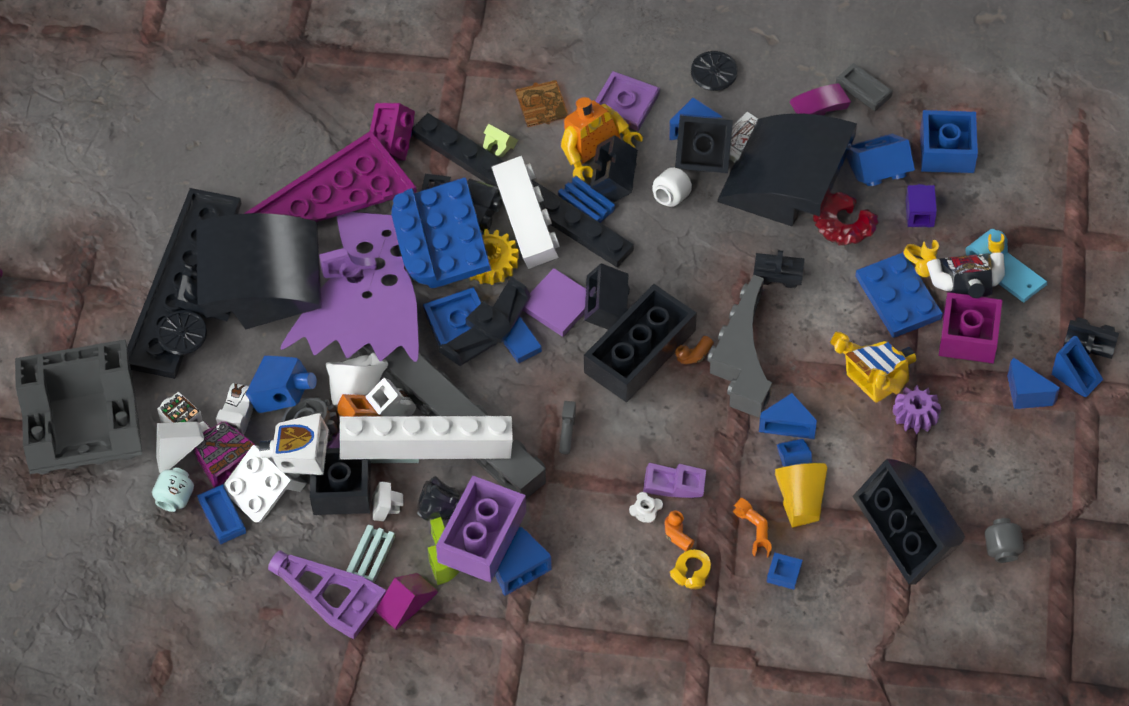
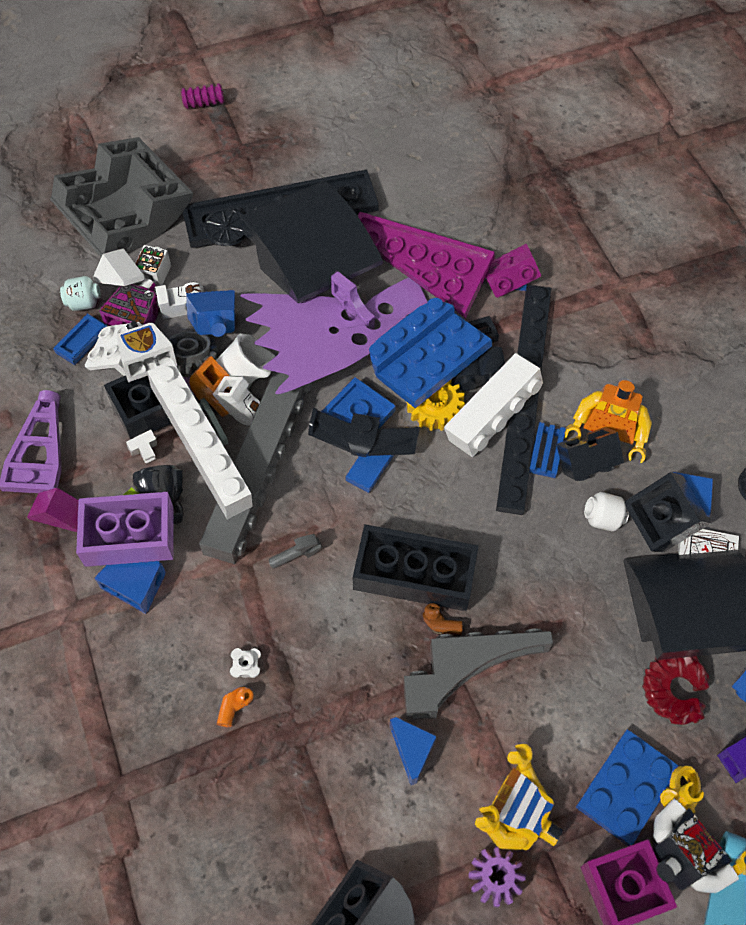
camera: 60 degrees right, 5 degrees up
(378, 535) = (90, 457): light aqua tile -> none
(498, 137) = (563, 351): yellowish green tile -> none
(541, 103) = (625, 364): clear orange piece -> none
(557, 302) = (426, 481): medium lavender tile -> none
(606, 296) = (449, 514): black brick -> none
(629, 98) = (676, 429): medium lavender tile -> none
(671, 482) = (289, 674): medium lavender slope -> none
(680, 570) = (186, 729): yellow piece -> none
(745, 510) = (287, 760): orange arm -> none
(779, 269) = (576, 652): black hips -> none
(784, 571) = (235, 832): blue plate -> none
(794, 452) = (378, 776): blue slope -> none
(802, 491) = (338, 804): yellow slope -> none

